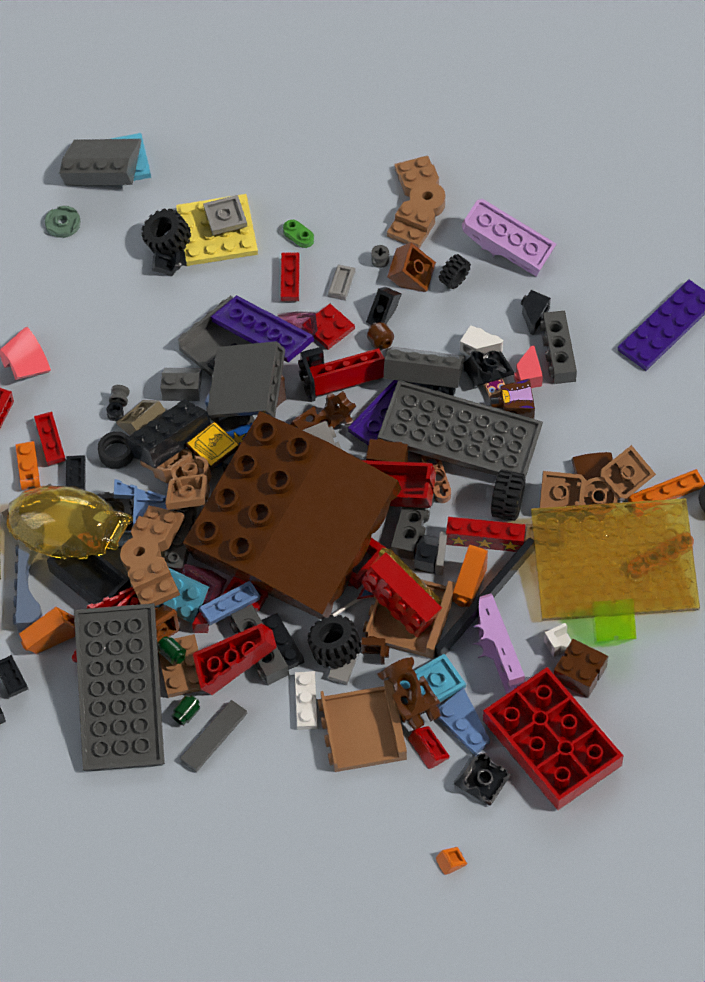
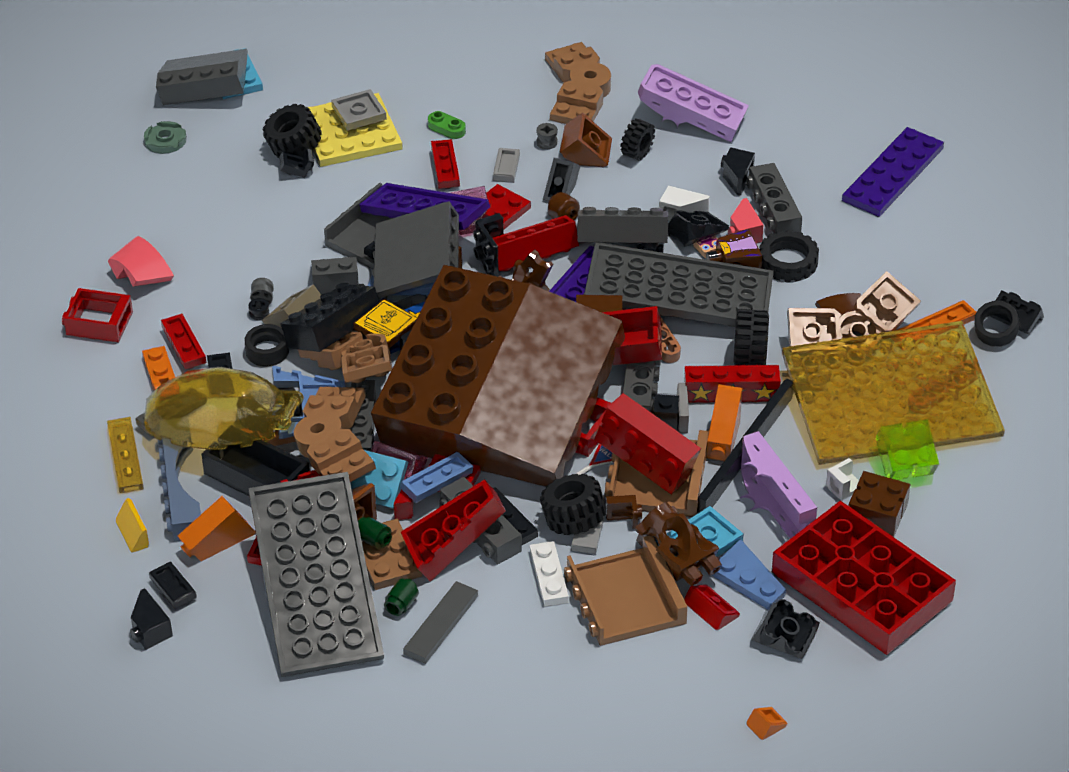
camera: 10 degrees left, 15 degrees down
(564, 390) = (793, 241): none -> black tyre

